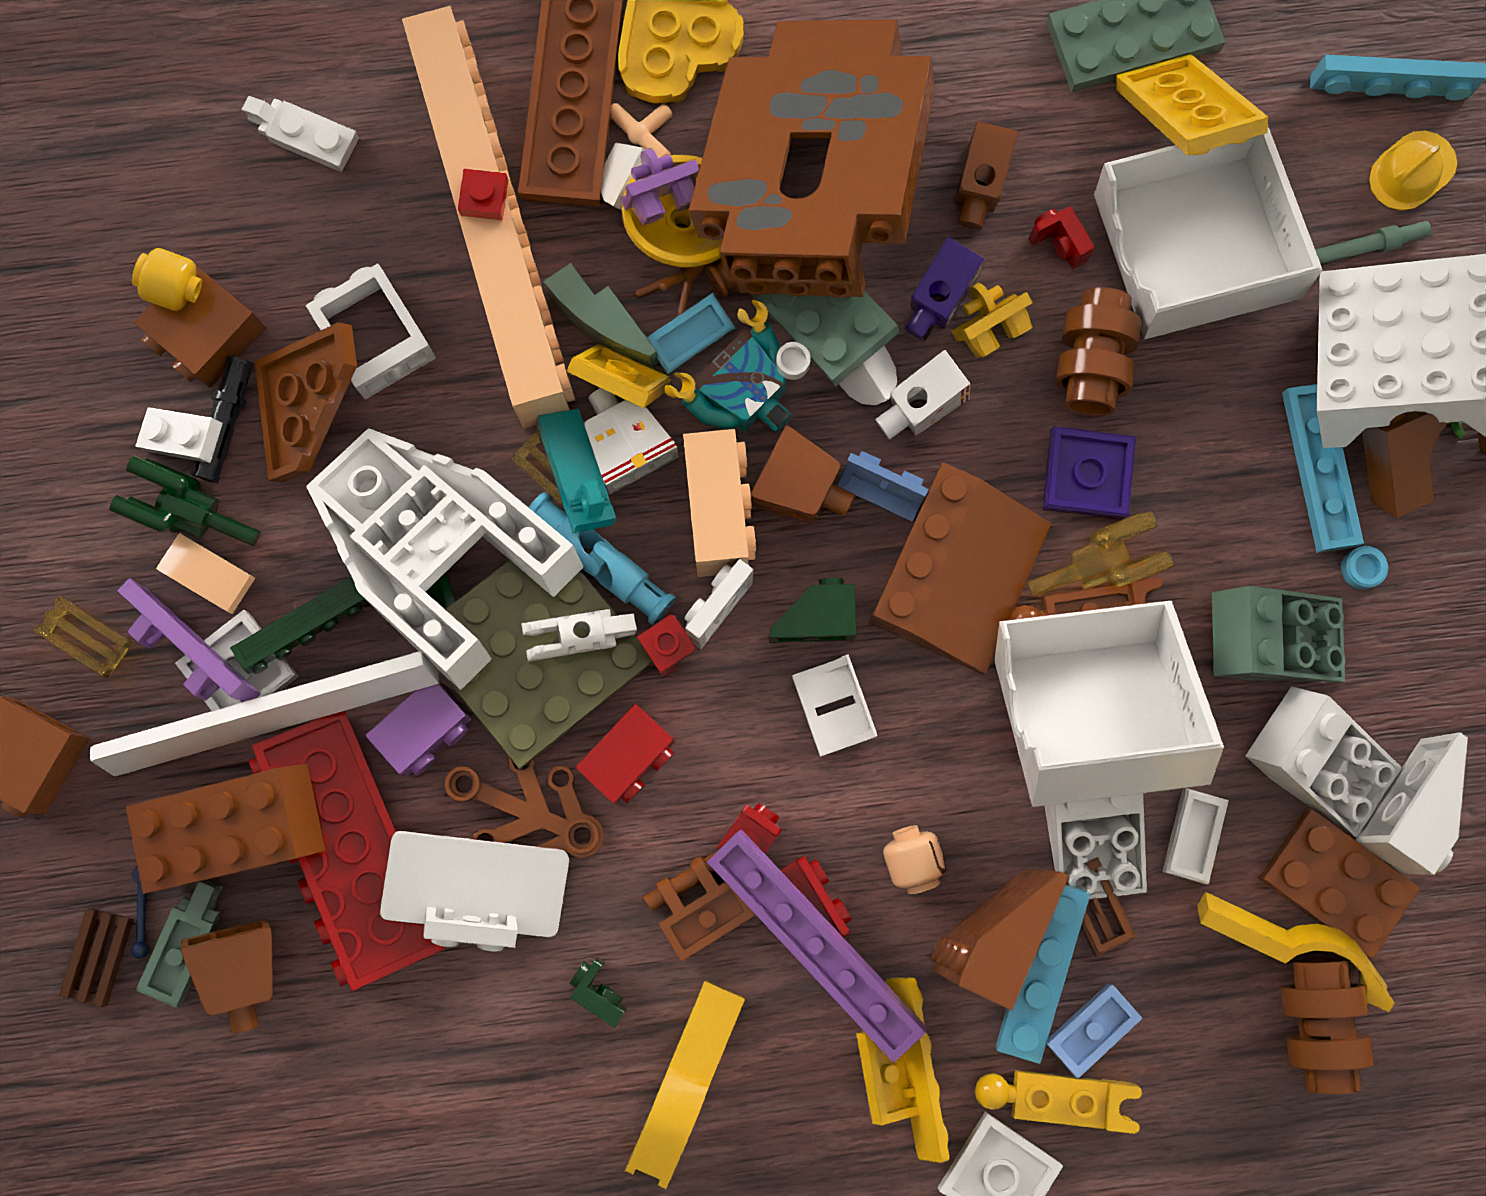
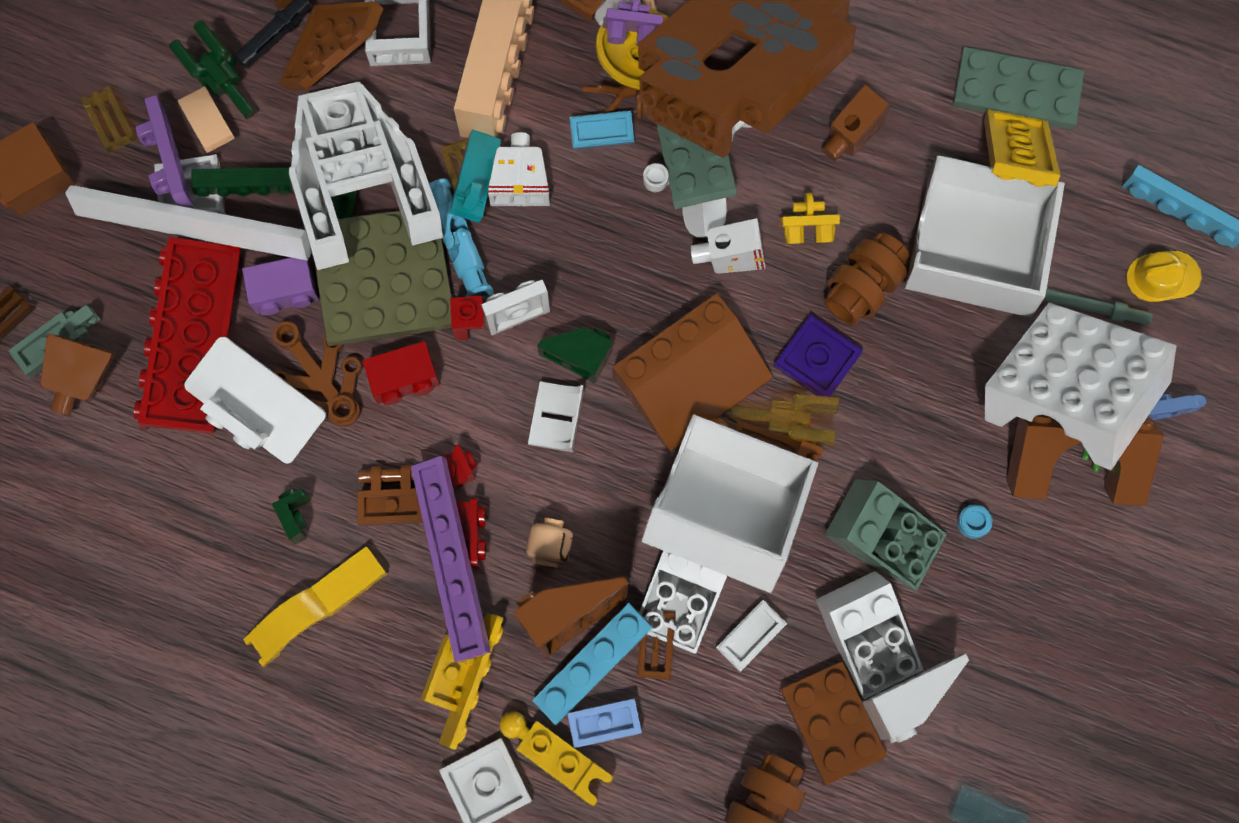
camera: 30 degrees right, 5 degrees down
(140, 948) = (55, 285): dark blue hinge -> none
(179, 434) = (240, 25): white plate -> none
(225, 828) = (121, 277): dark orange brick -> none
(599, 315) = (548, 88): sand green slope -> none
(599, 625) = (430, 280): white hinge -> none
(619, 375) = (538, 129): yellow tile -> none
(718, 500) = (554, 239): light nougat brick -> none
(740, 381) = (613, 176): torso -> none
(800, 480) = (617, 259): dark orange torso -> none
(894, 493) = (668, 289): medium blue piece -> none
(951, 277) = (785, 184): dark purple torso -> none
(1069, 235) = (891, 193): red bracket -> none
(1287, 944) = (766, 736): yellow piece -> none
(1322, 475) = (976, 452): medium azure plate -> none

